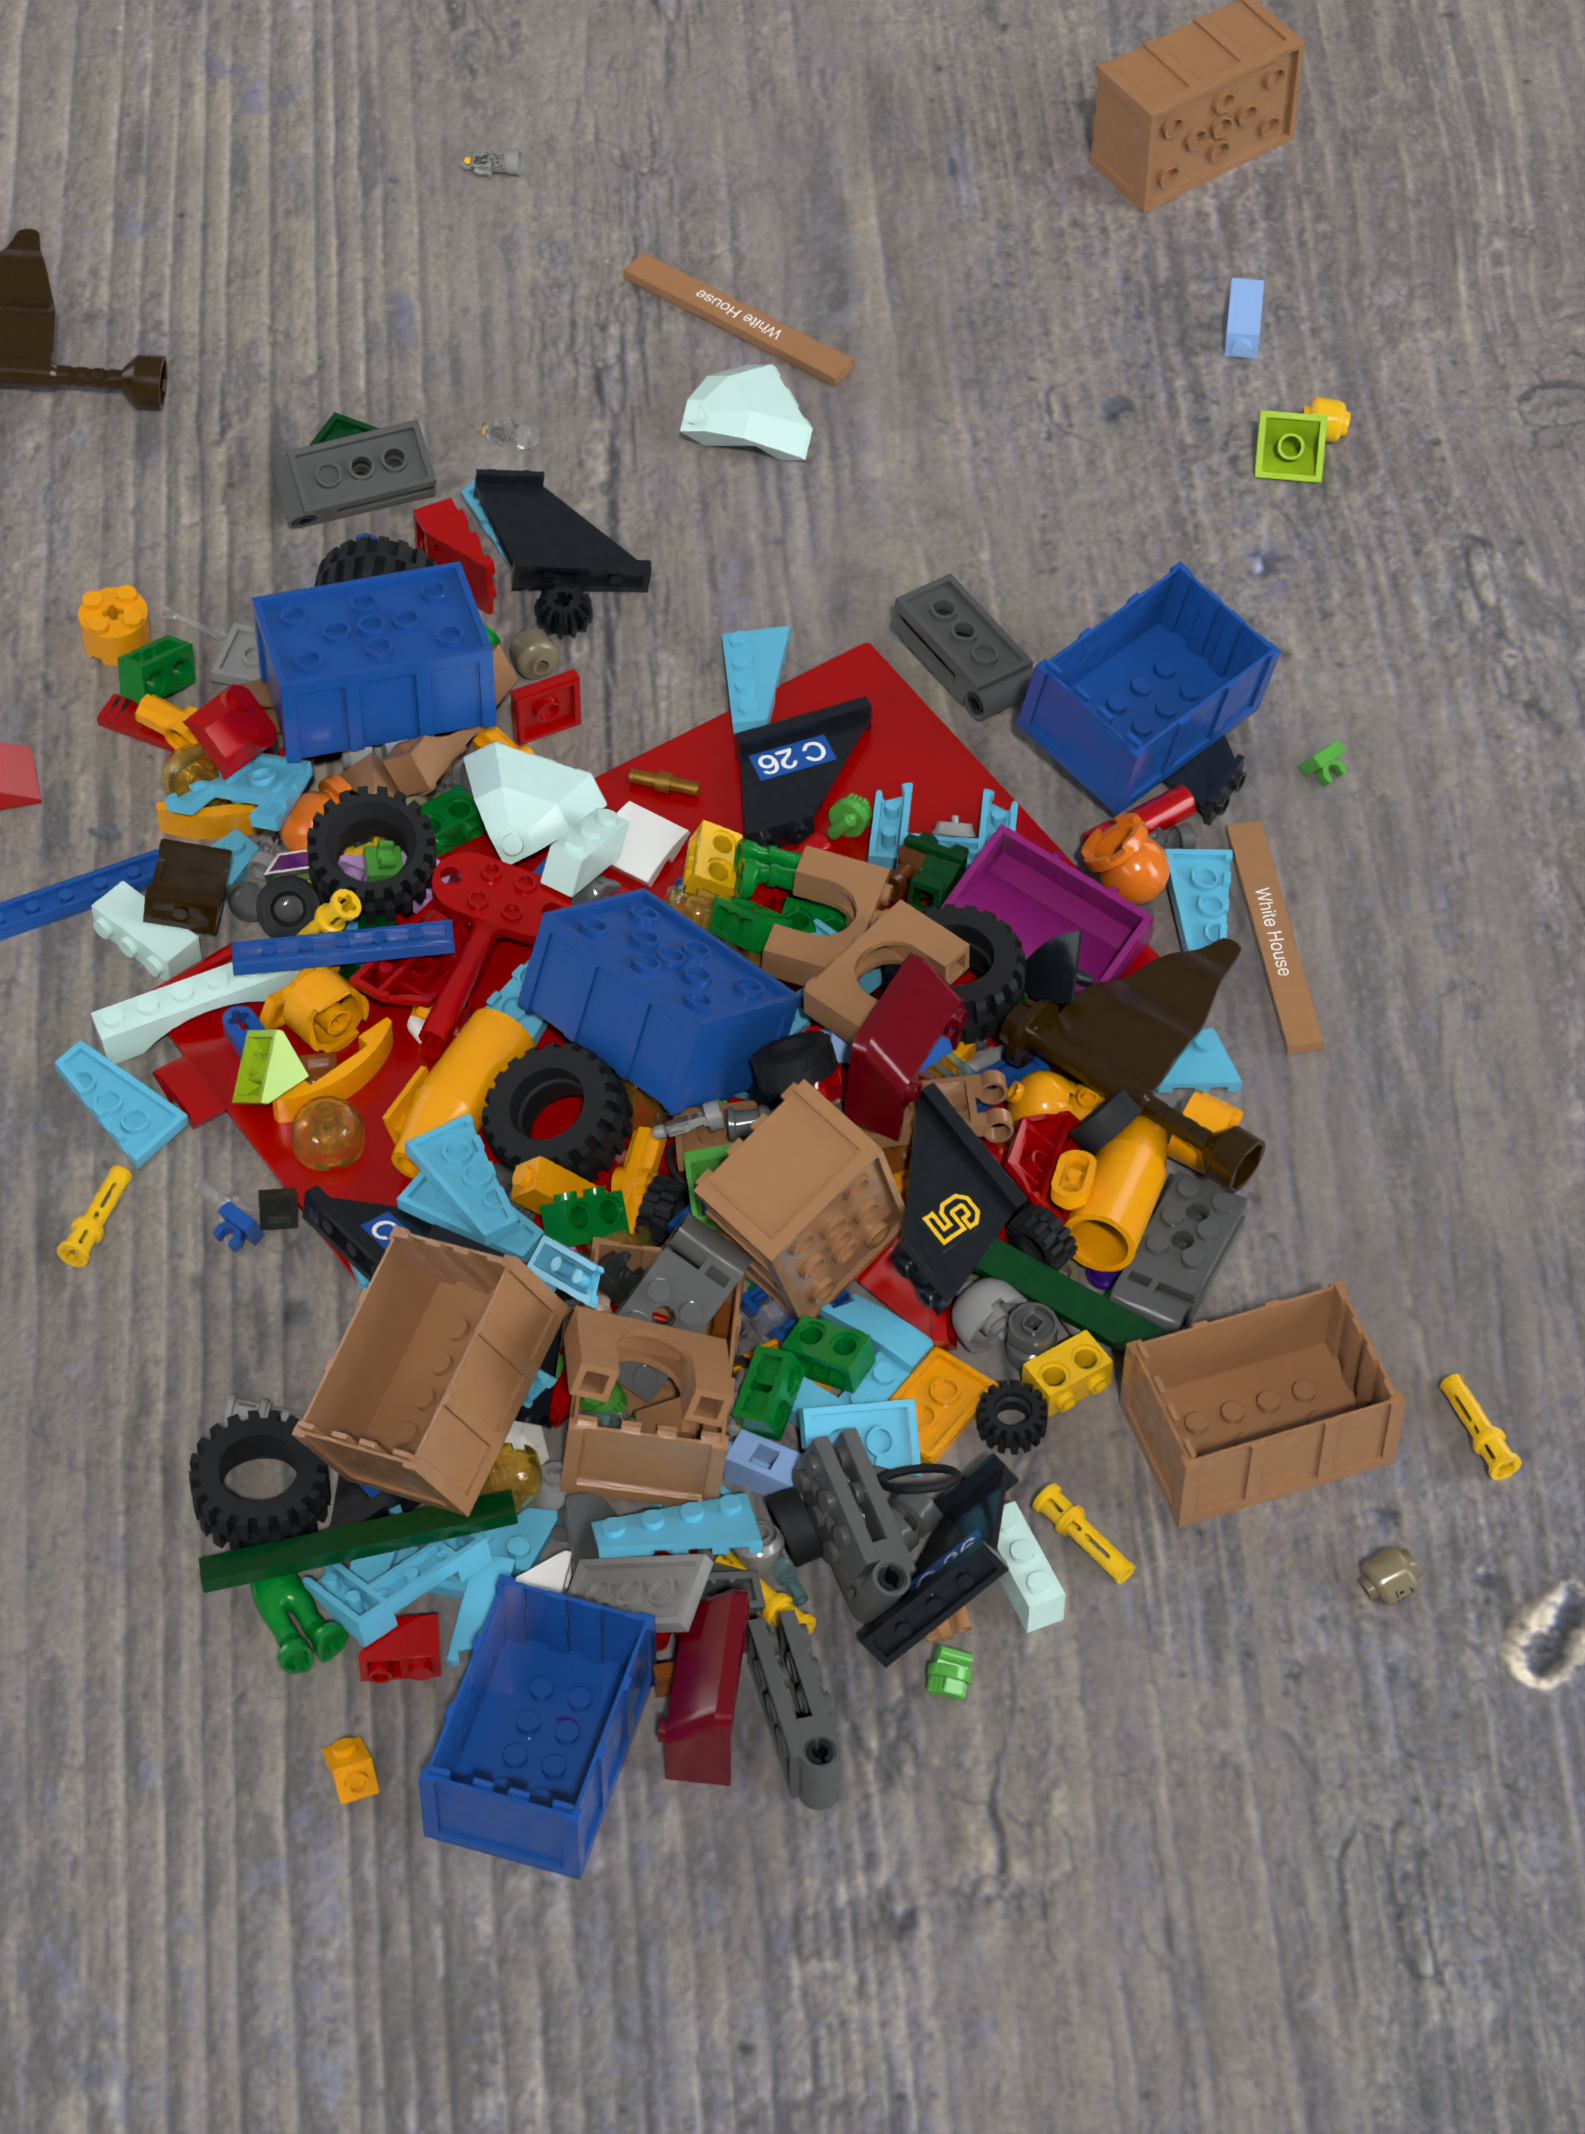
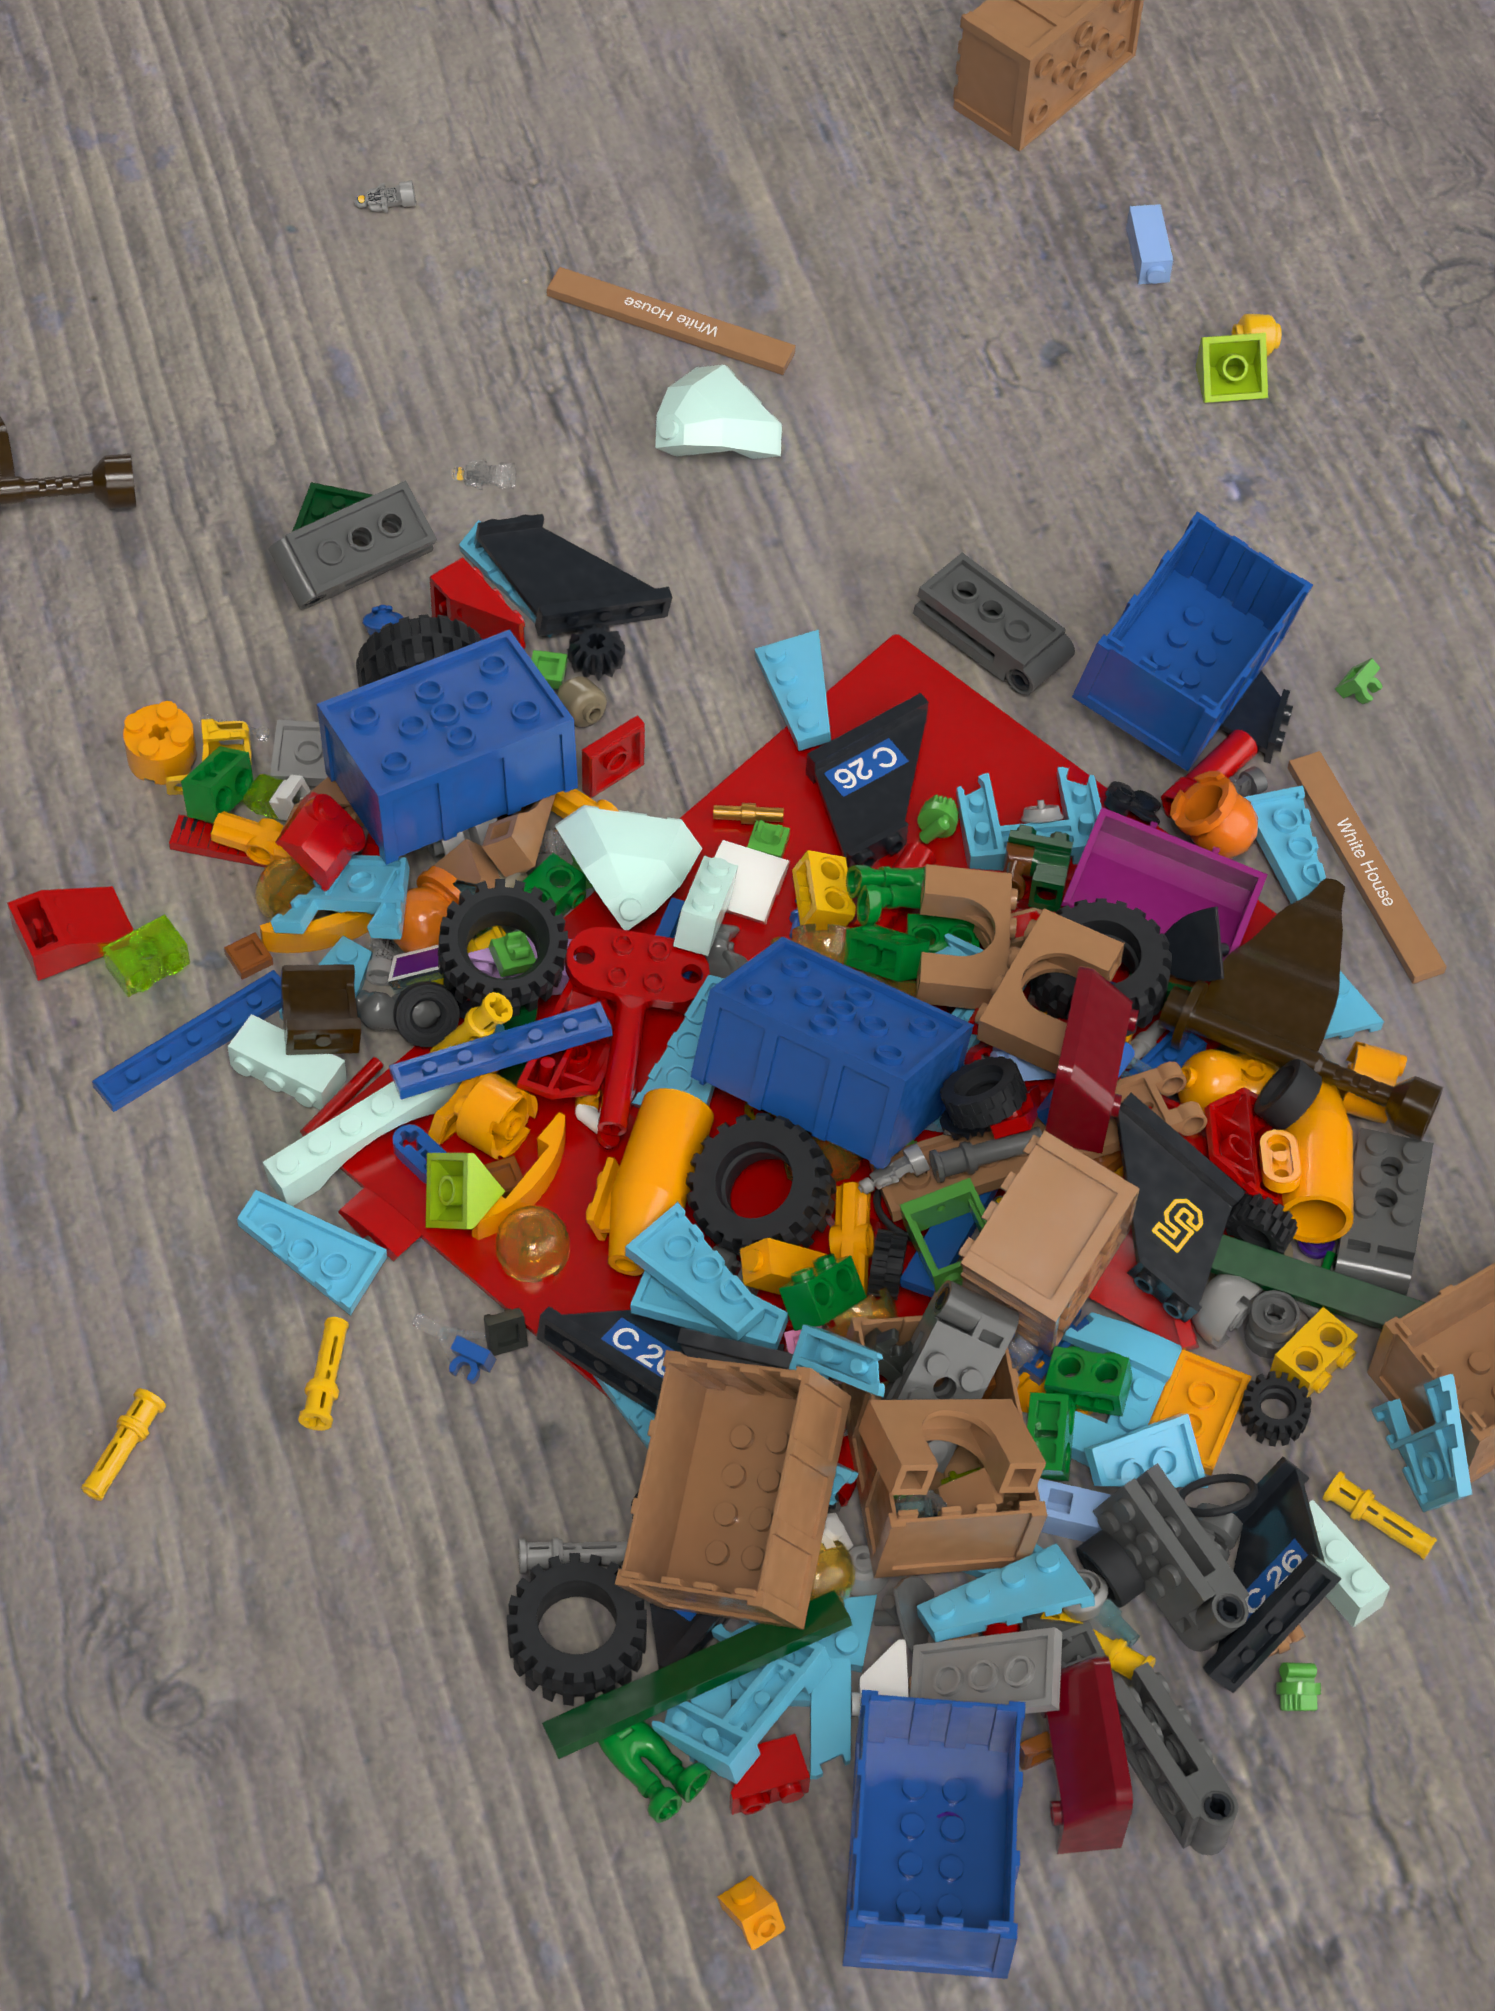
camera: 15 degrees left, 5 degrees up
(43, 814) = (155, 939): none -> clear neon green brick
(141, 832) = (248, 955): none -> dark orange tile
(163, 624) = (211, 735): none -> yellow piece
(203, 684) = (275, 796): none -> leg
(509, 619) = (551, 666): none -> bright green tile
(677, 808) = (769, 838): none -> bright green tile
(1046, 830) = (1123, 800): none -> black plate
(1148, 1473) = (1435, 1455): none -> medium azure wing

